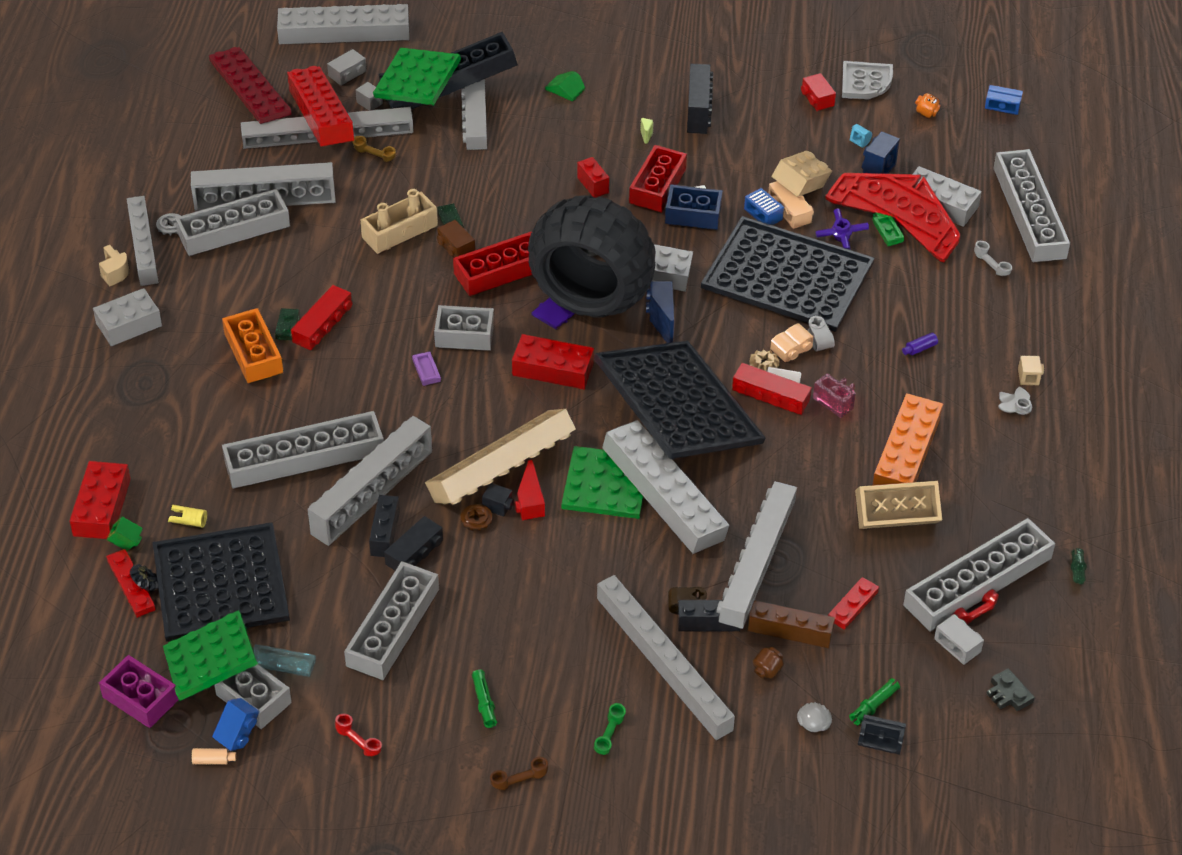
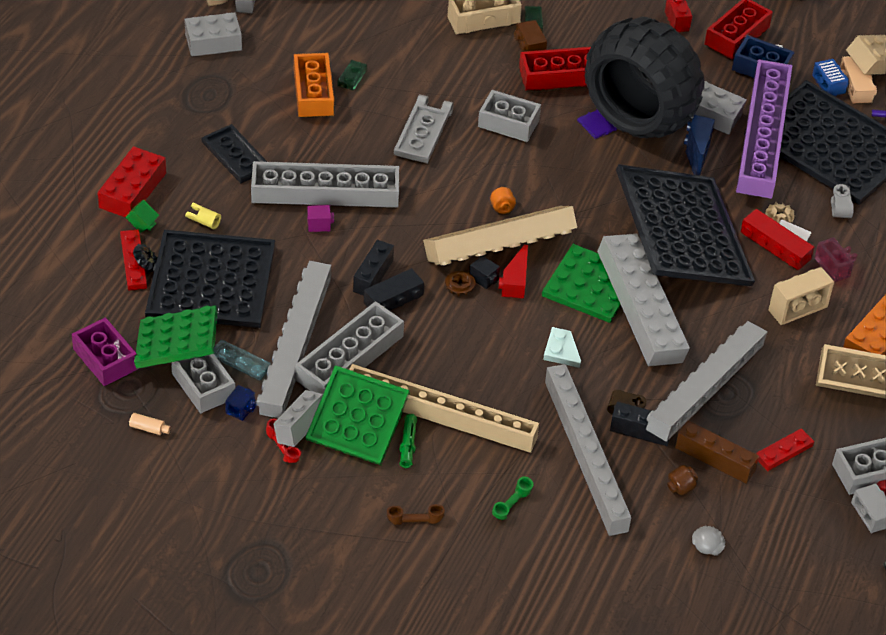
camera: 15 degrees right, 0 degrees up
(194, 439) = (233, 152): none -> black tile
(236, 724) = (177, 401): blue brick -> none
(300, 706) = (240, 402): none -> clear blue brick
(309, 487) = (319, 218): none -> magenta brick
(321, 317) = (384, 76): red brick -> none
(331, 624) = (295, 339): none -> light grey brick
(367, 706) = (297, 419): none -> light grey brick
(370, 478) = (380, 221): light grey brick -> none
(381, 373) = (419, 136): none -> light grey hinge
(426, 368) = (463, 143): medium lavender tile -> none
(426, 686) = (357, 415): none -> green plate
(488, 417) = (503, 200): none -> orange head
(505, 655) = (463, 413): none -> tan brick
(553, 361) = (580, 165): red brick -> none
(602, 558) = (562, 348): none -> light aqua wing
(722, 278) = (764, 129): none -> medium lavender brick
(792, 342) = (812, 203): light nougat brick -> none
(816, 441) = (801, 295): none -> tan brick
(869, 706) = (763, 544): green pin -> none
(881, 734) = (767, 573): black hinge -> none

